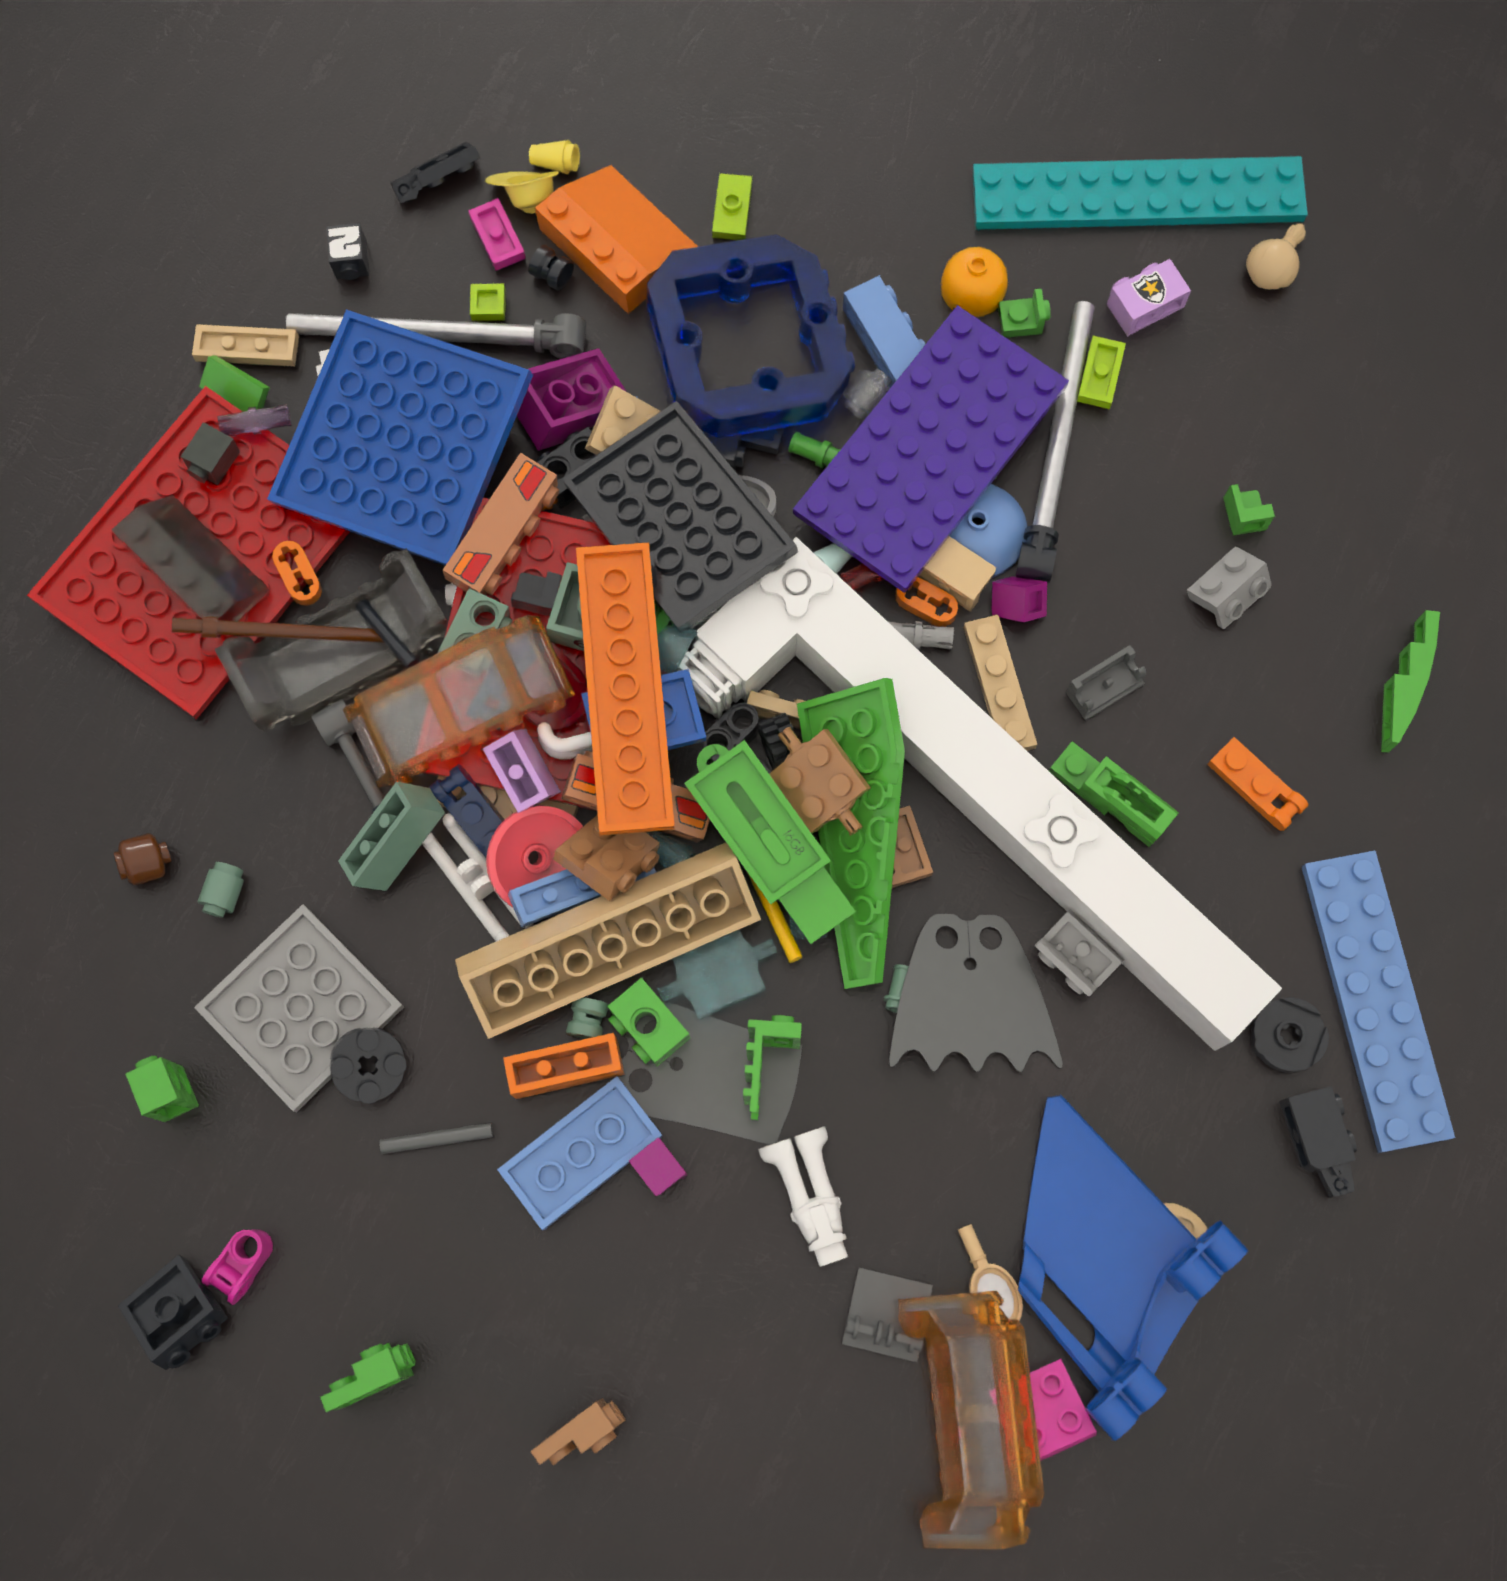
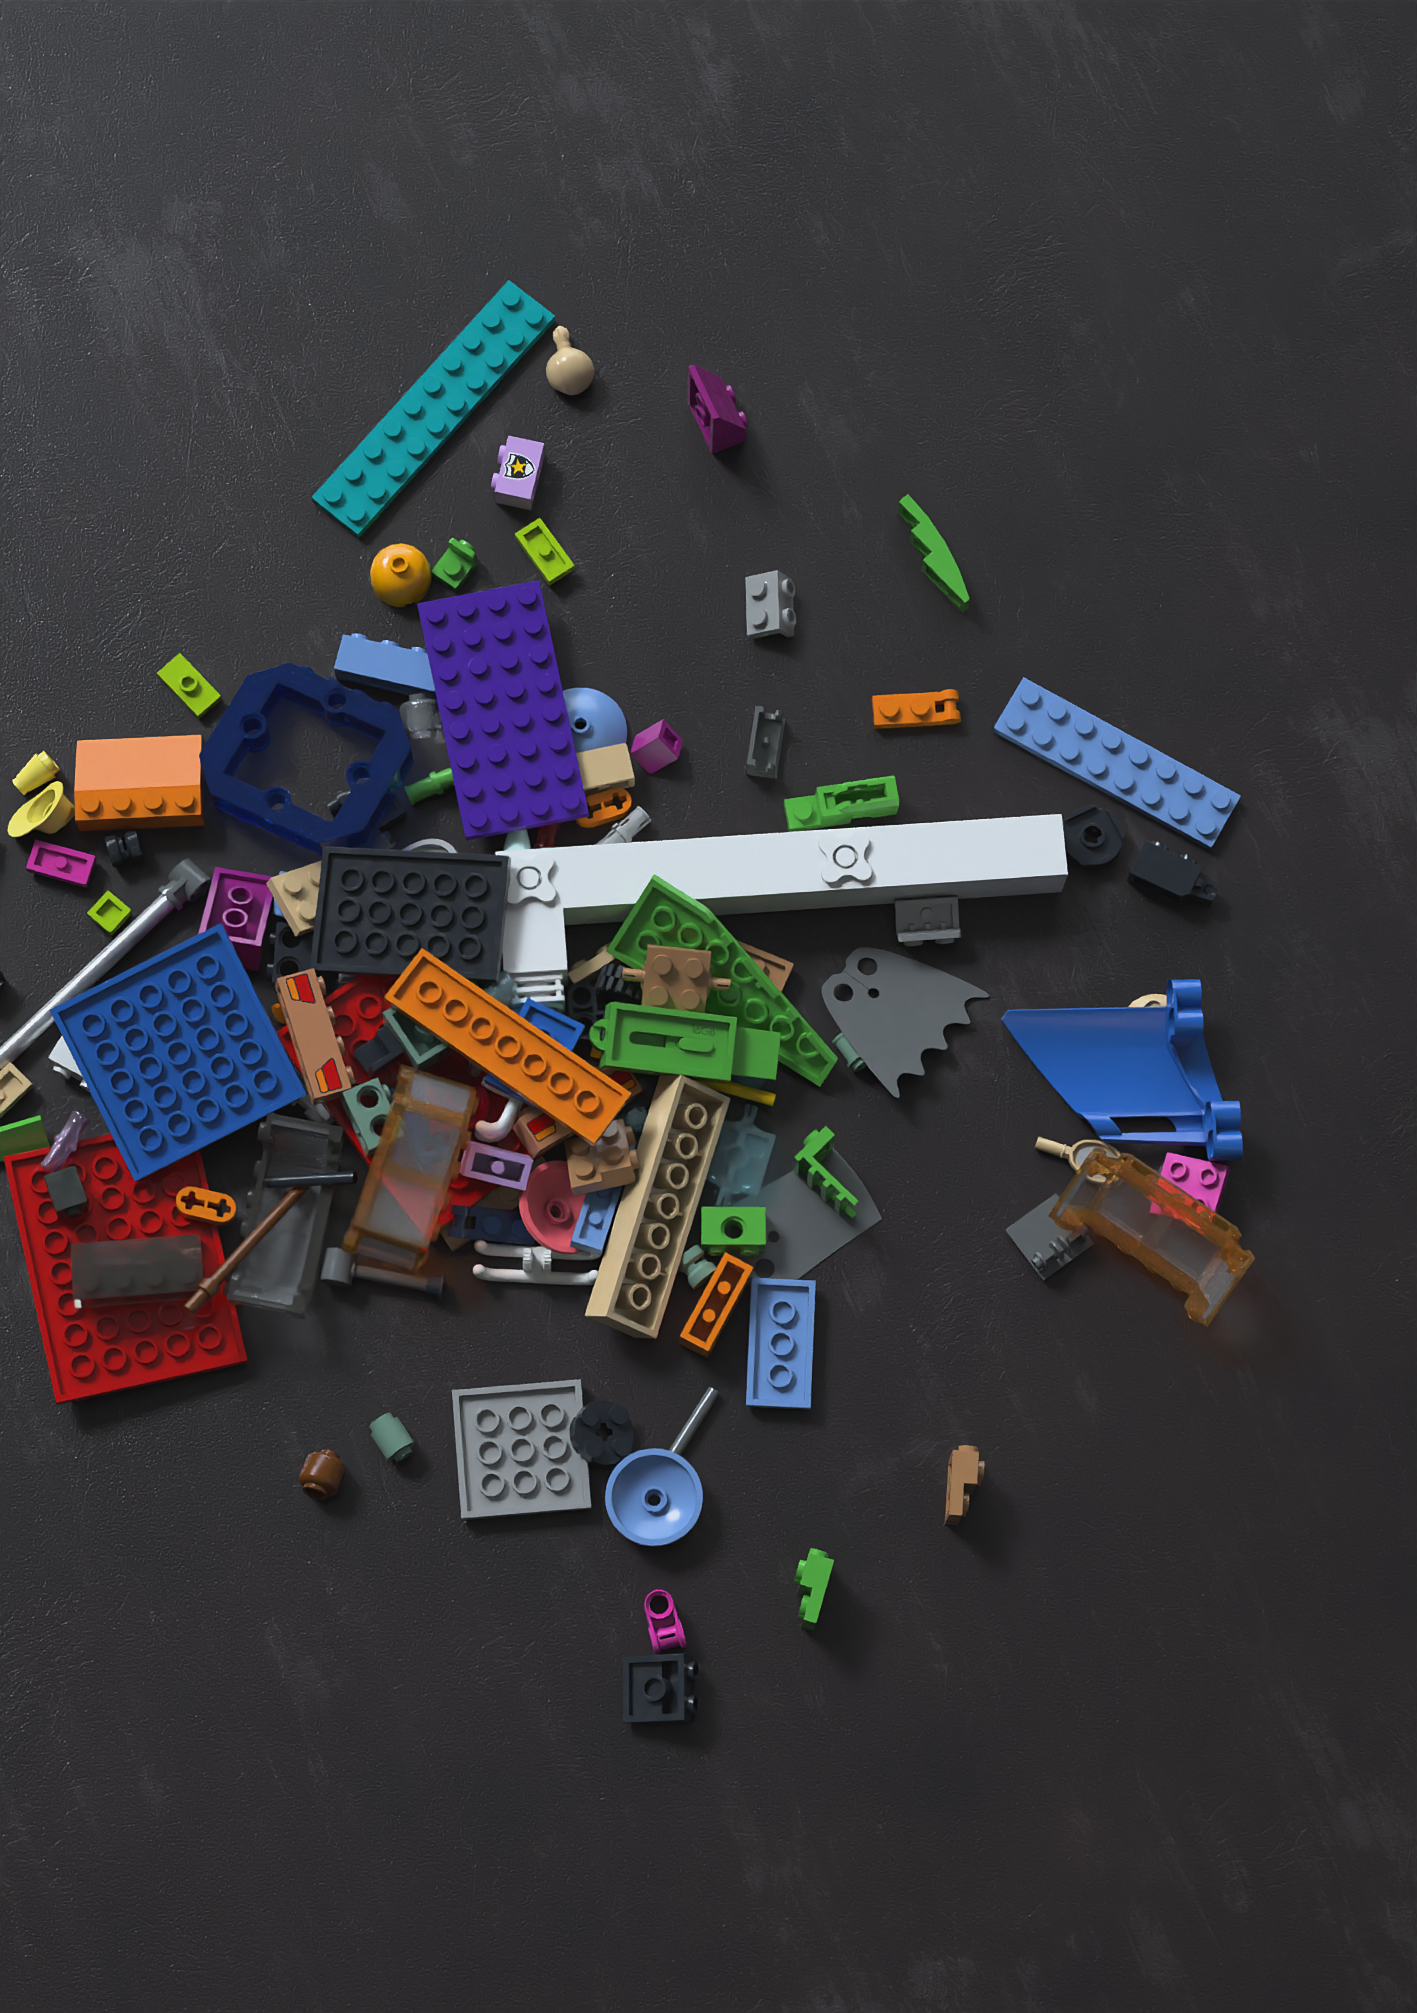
camera: 55 degrees left, 0 degrees up
(161, 1089) = (503, 1577): bright green brick -> none
(317, 1154) = (649, 1474): none -> medium blue dish
(391, 836) = (463, 1289): sand green brick -> none
(657, 1167) = (833, 1300): magenta panel -> none
(818, 1216) = (952, 1226): white piece -> none
(999, 679) = (698, 808): tan plate -> none
(1038, 554) = (637, 708): flat silver piece -> none
(1246, 511) = (727, 547): bright green panel -> none
(1355, 395) = (715, 409): none -> magenta slope

